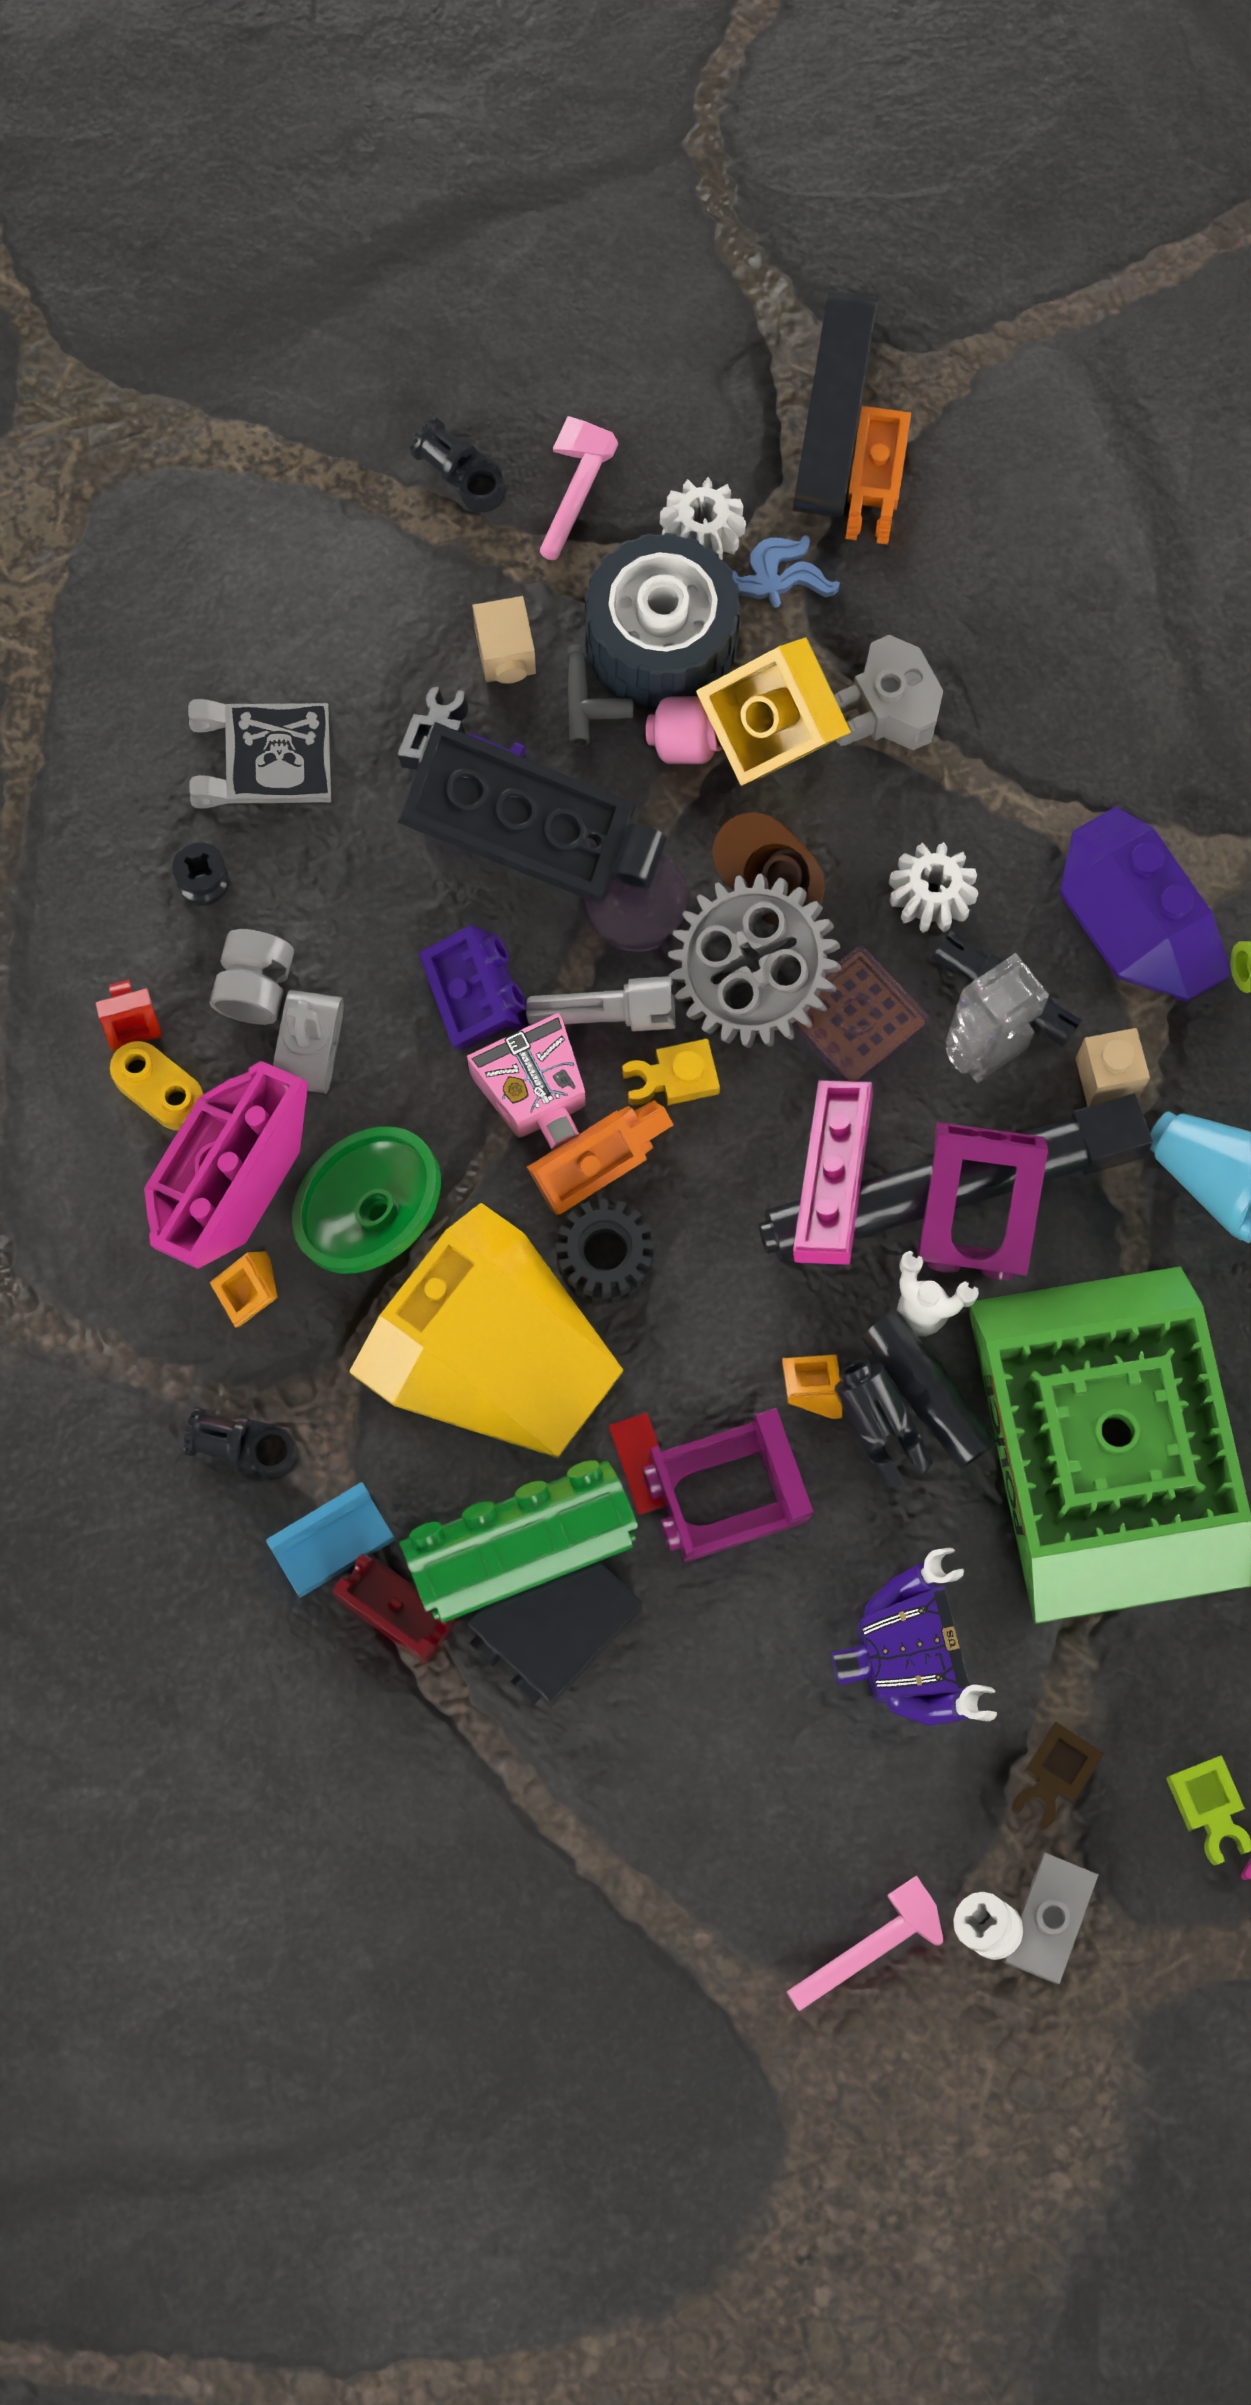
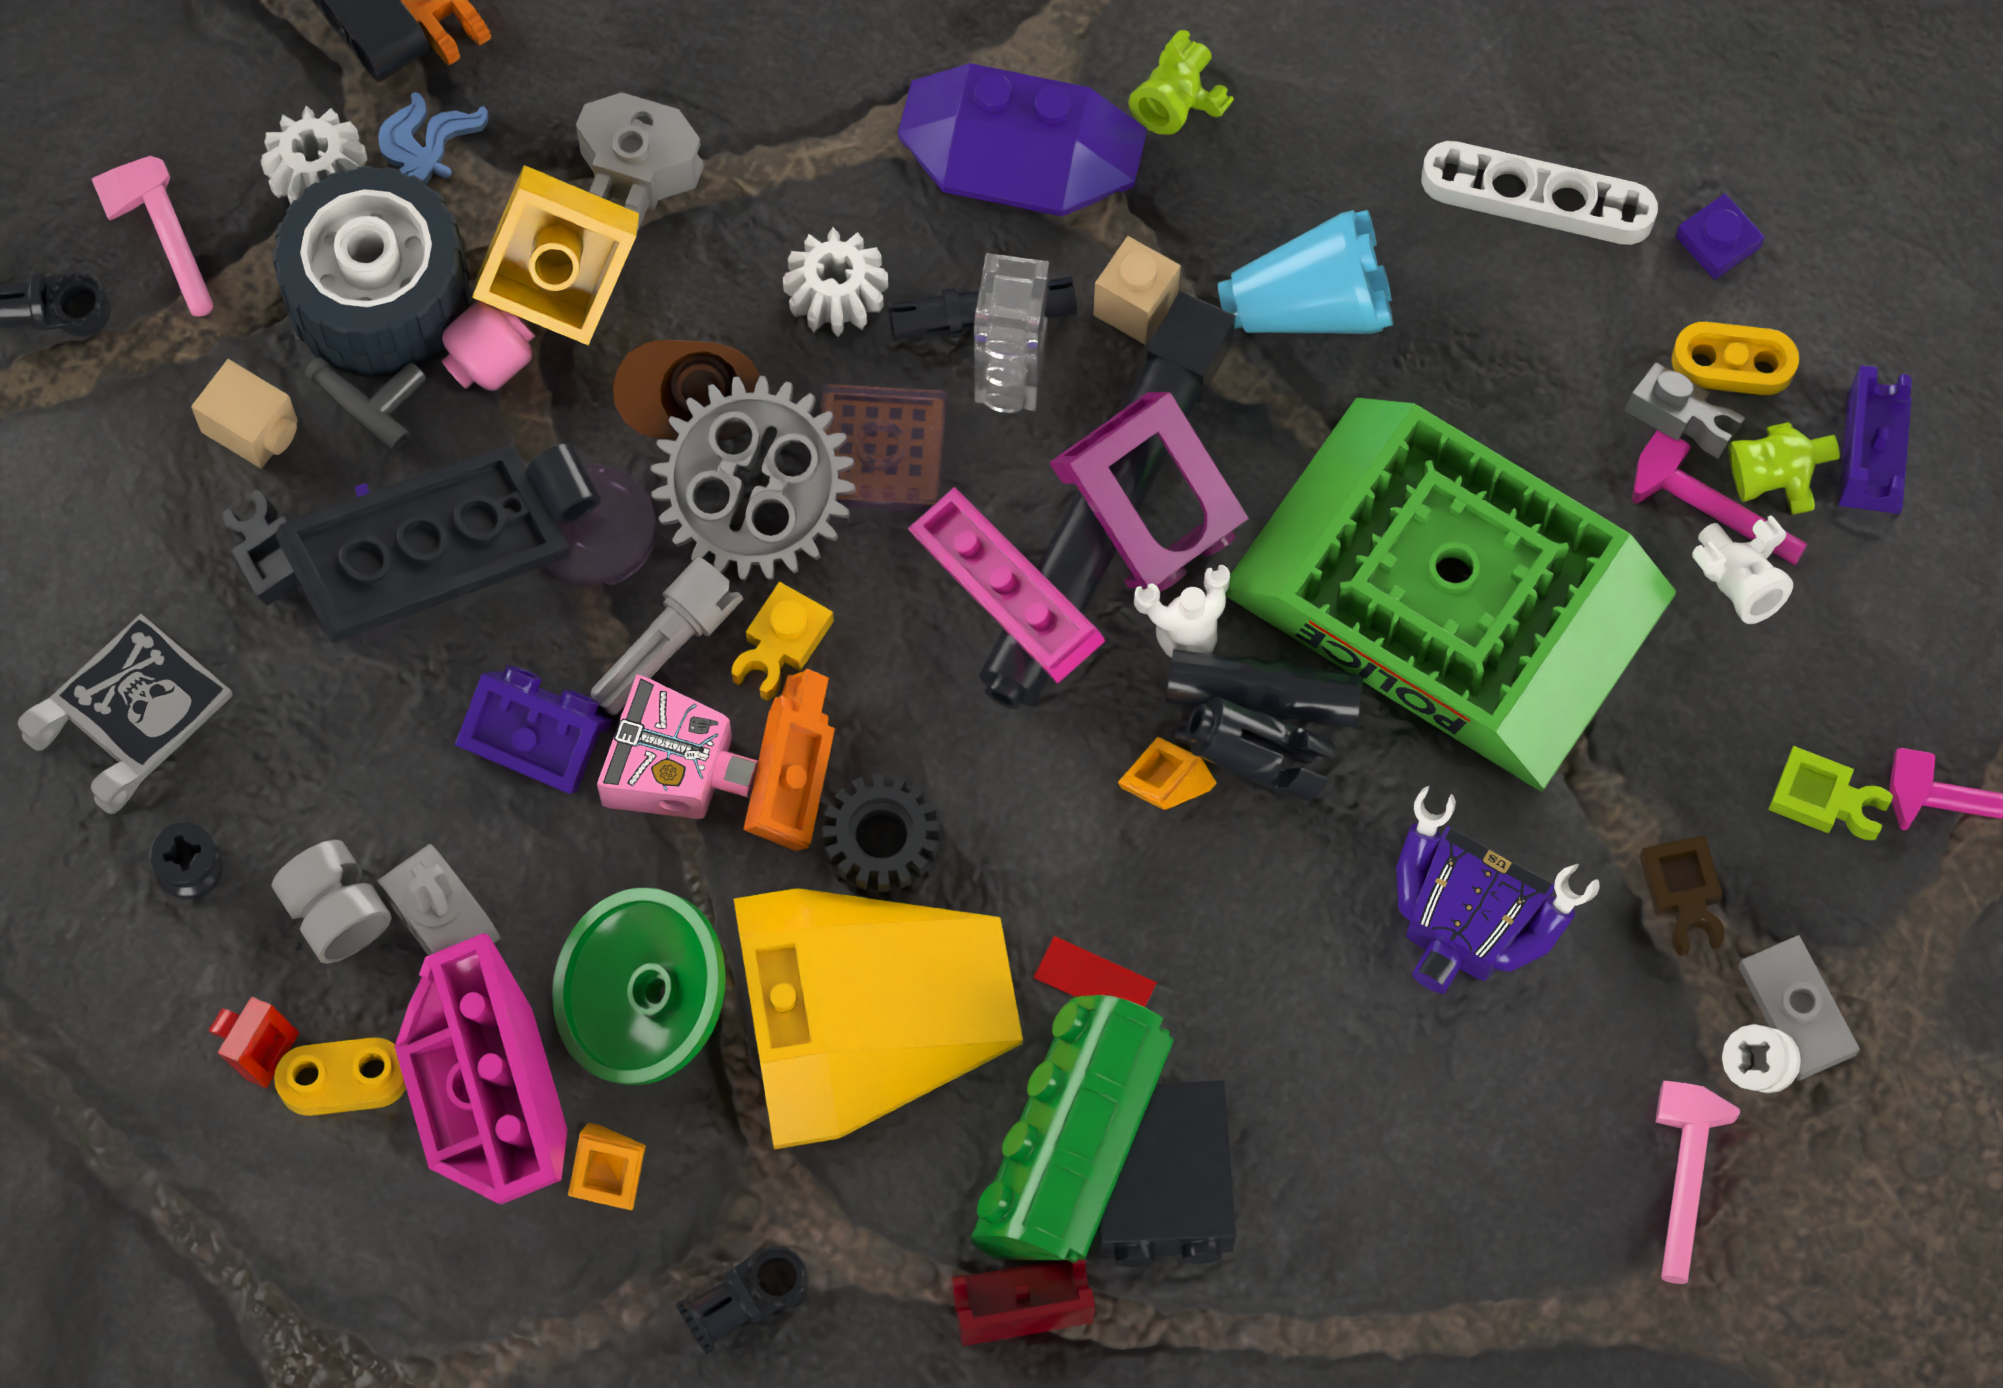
camera: 45 degrees left, 5 degrees down
(330, 1539) = (908, 1300): dark azure panel -> none
(762, 1436) = (1215, 867): magenta panel -> none

